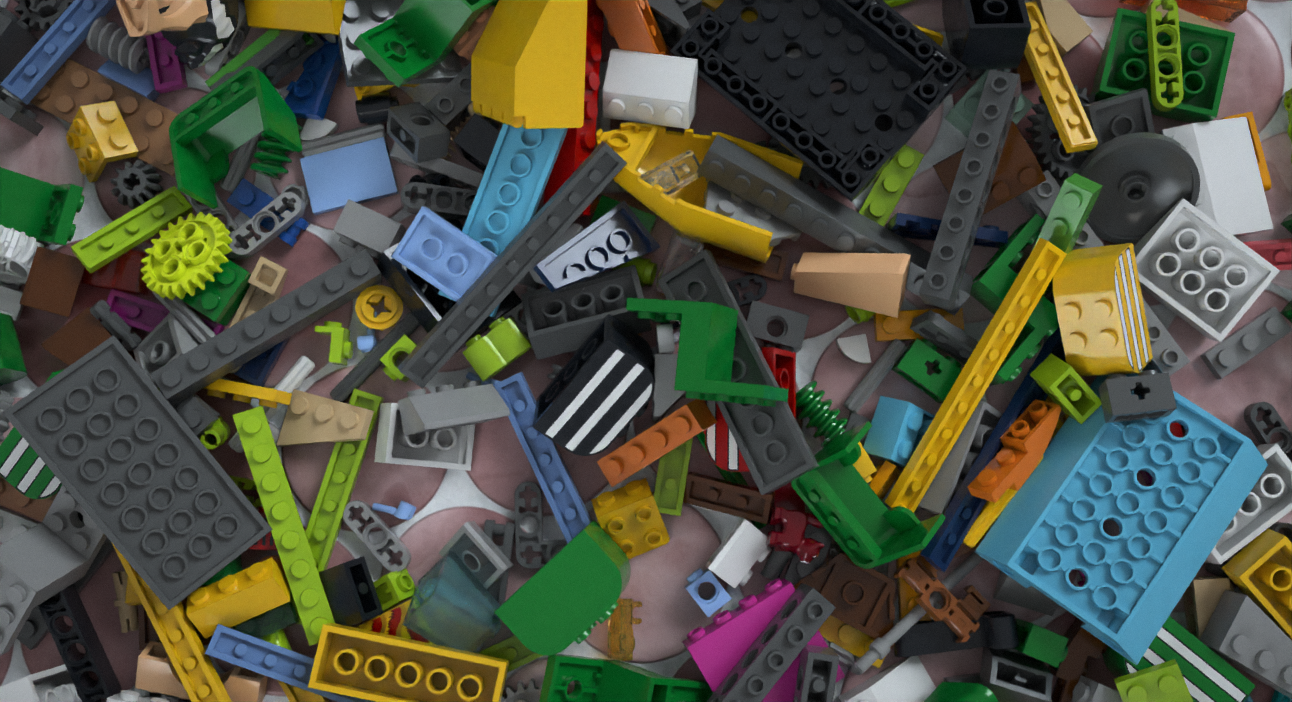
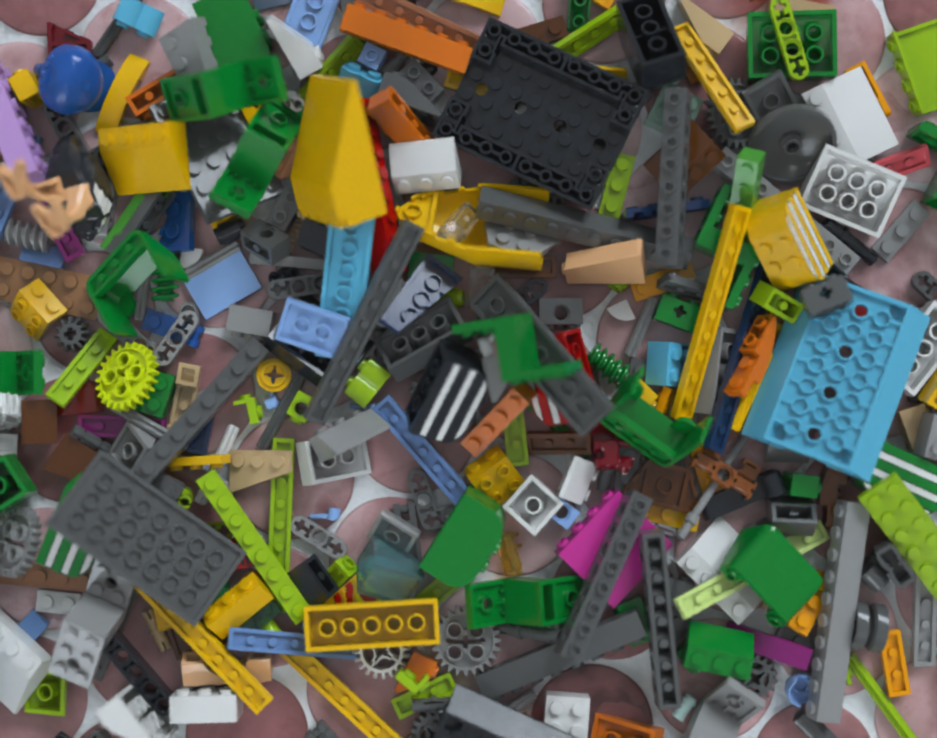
camera: 10 degrees left, 5 degrees up
(671, 570) = (533, 504): none -> white slope
(1174, 325) = (850, 241): none -> black pin

